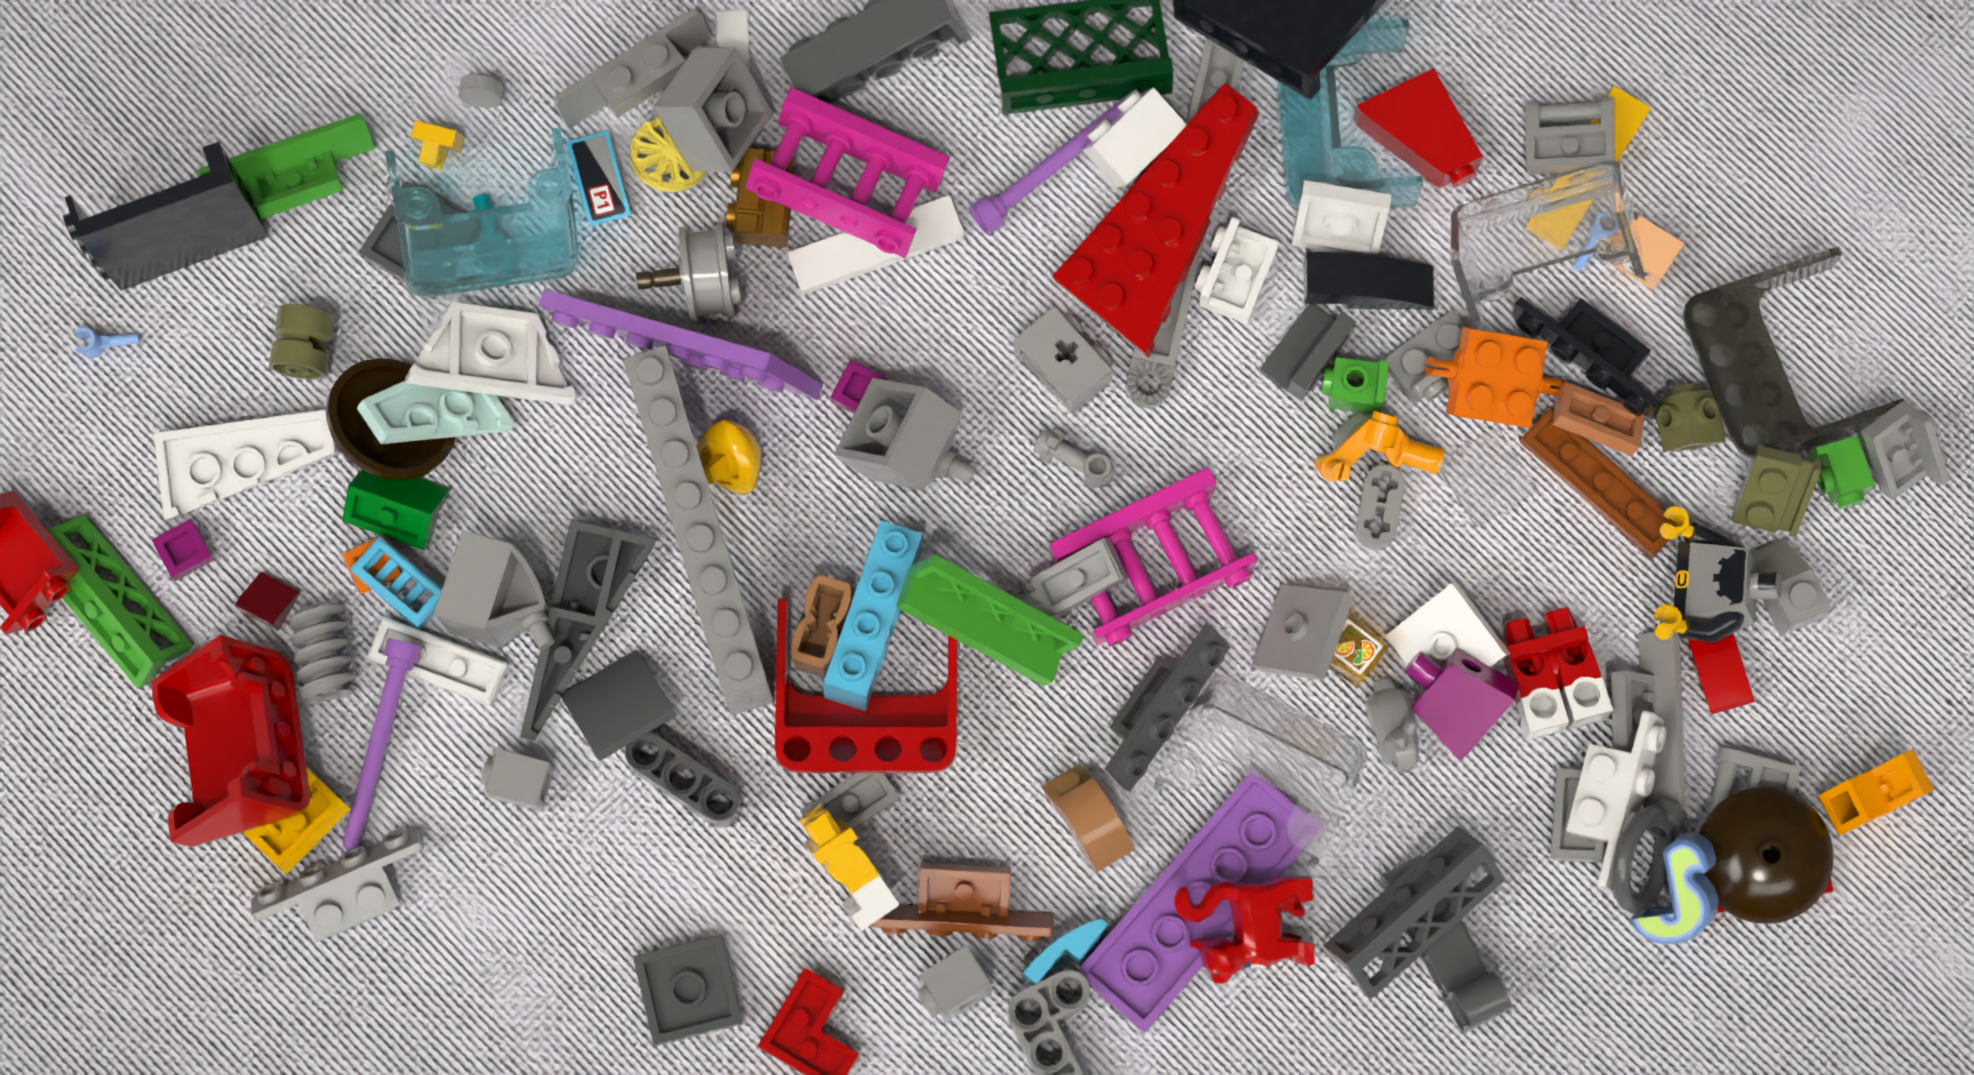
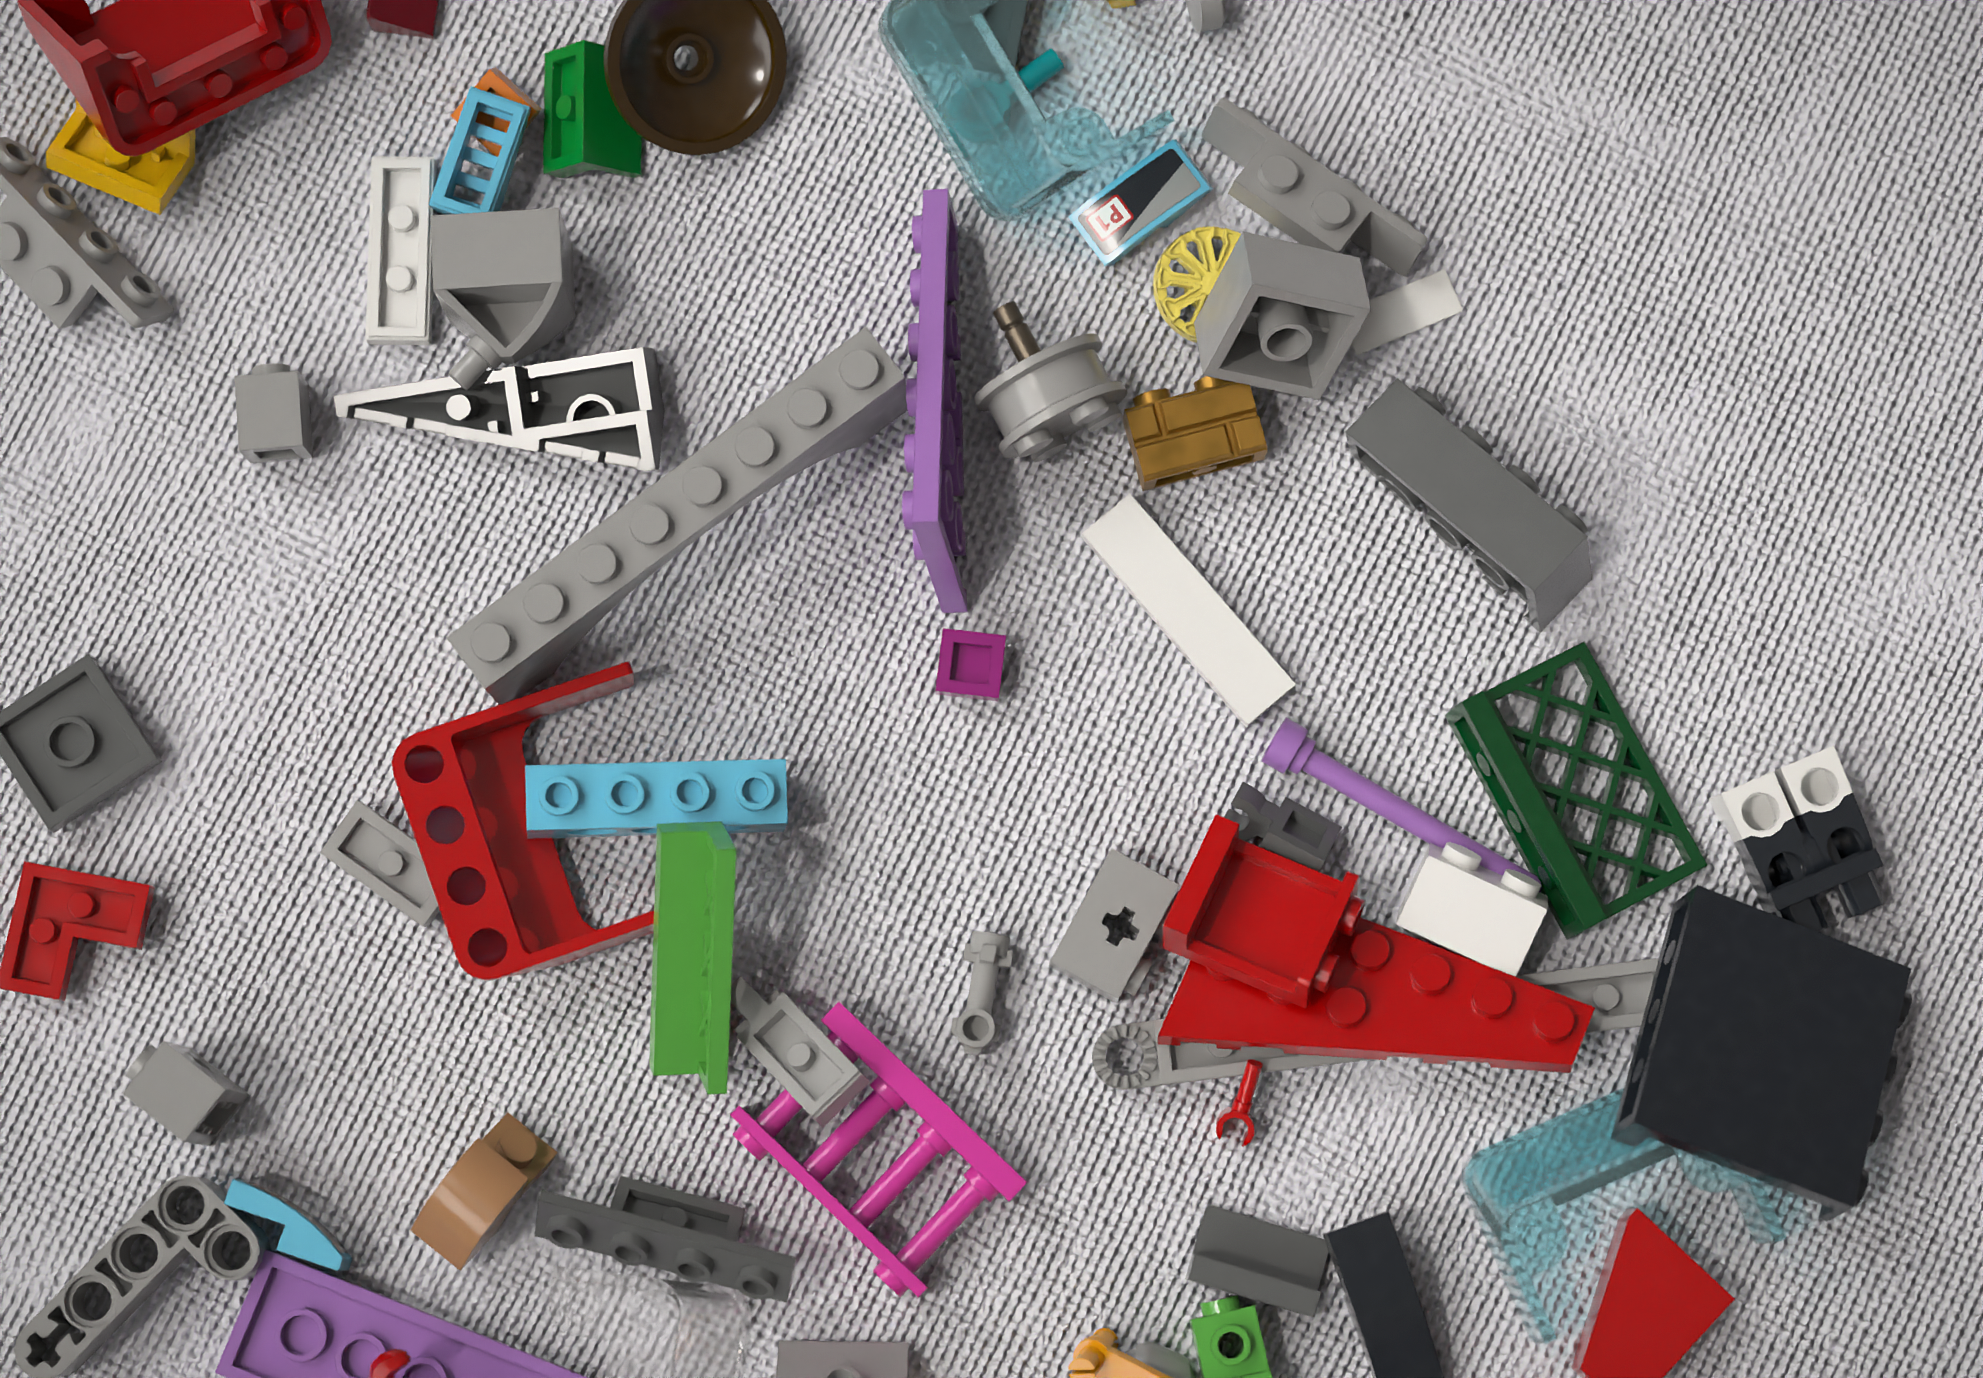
camera: 70 degrees right, 5 degrees up
(320, 652) = (355, 95): light grey piece -> none
(400, 659) = (380, 200): medium lavender piece -> none
(428, 412) = (737, 111): light aqua wing -> none
(492, 354) = (834, 155): white wing -> none
(618, 705) = (415, 506): dark grey slope -> none
(695, 798) = (341, 600): dark grey beam -> none
(730, 456) = (809, 524): yellow piece -> none
(819, 632) = (627, 733): medium nougat brick -> none
(835, 850) = (290, 892): yellow hips -> none
(864, 141) = (1319, 505): dark pink fence -> none
(903, 436) = (913, 746): light grey piece -> none
(966, 901) = (307, 1066): dark orange bracket -> none
(1042, 231) = (1286, 829): none -> dark grey plate
(1094, 260) = (1261, 916): none -> red panel
(1206, 323) = (1242, 1102): none -> red hand
(1237, 271) = (1332, 1122): white bracket -> none
(1340, 219) = (1458, 1244): white plate -> none

